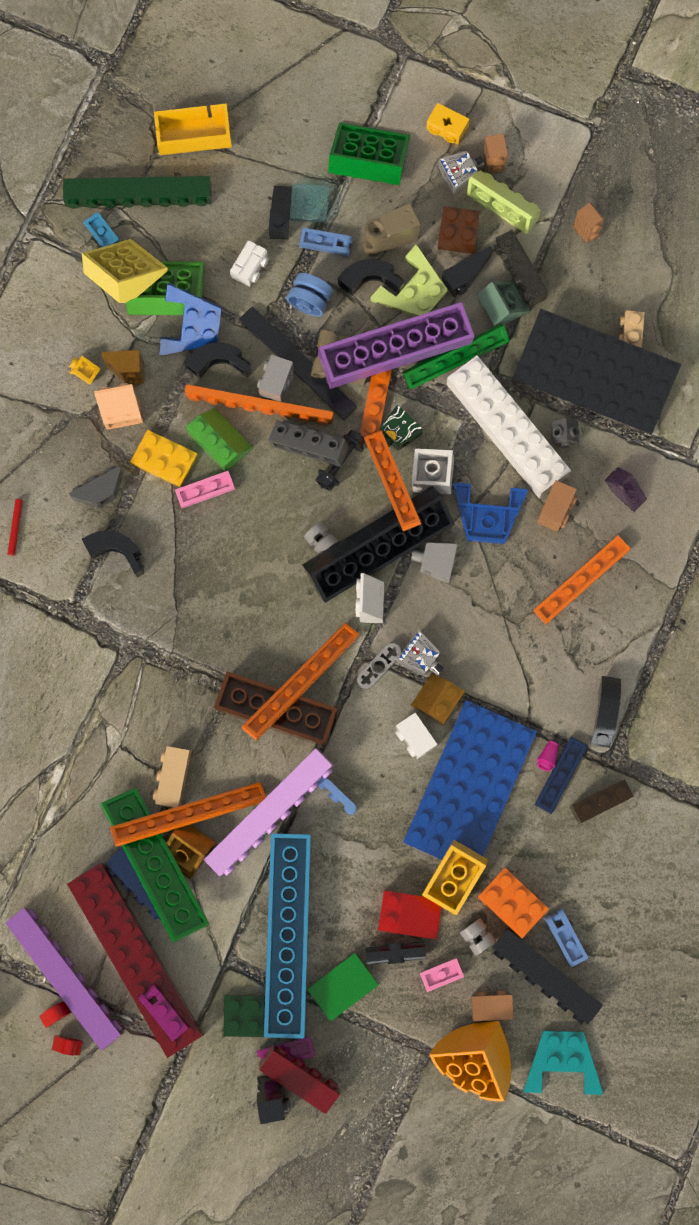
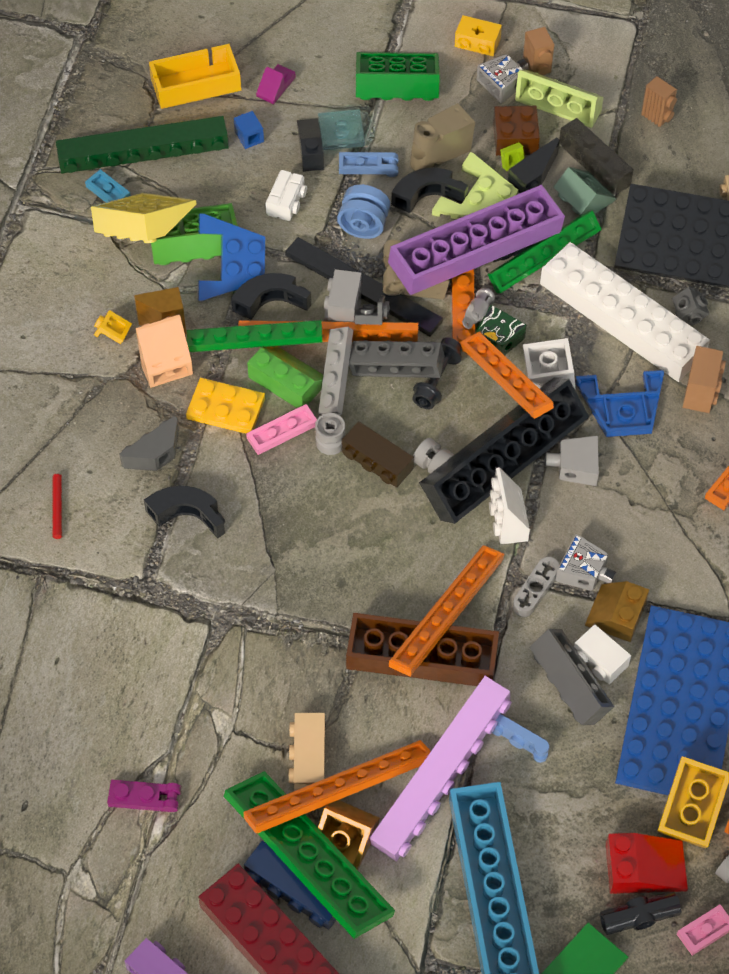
camera: 15 degrees left, 20 degrees down
(42, 788) = (143, 795): none -> magenta plate
(196, 402) = (254, 336): none -> green plate
(230, 190) = (248, 129): none -> blue brick
(241, 502) = (329, 433): none -> light grey wheel
(257, 446) = (335, 371): none -> light grey plate
(262, 144) = (274, 83): none -> magenta slope
(276, 527) = (377, 454): none -> dark brown brick
(297, 396) = (371, 315): none -> dark grey bracket
(379, 733) = (571, 677): none -> dark grey brick
(386, 404) = (478, 307): none -> light grey piece
(449, 256) = (511, 155): none -> lime plate

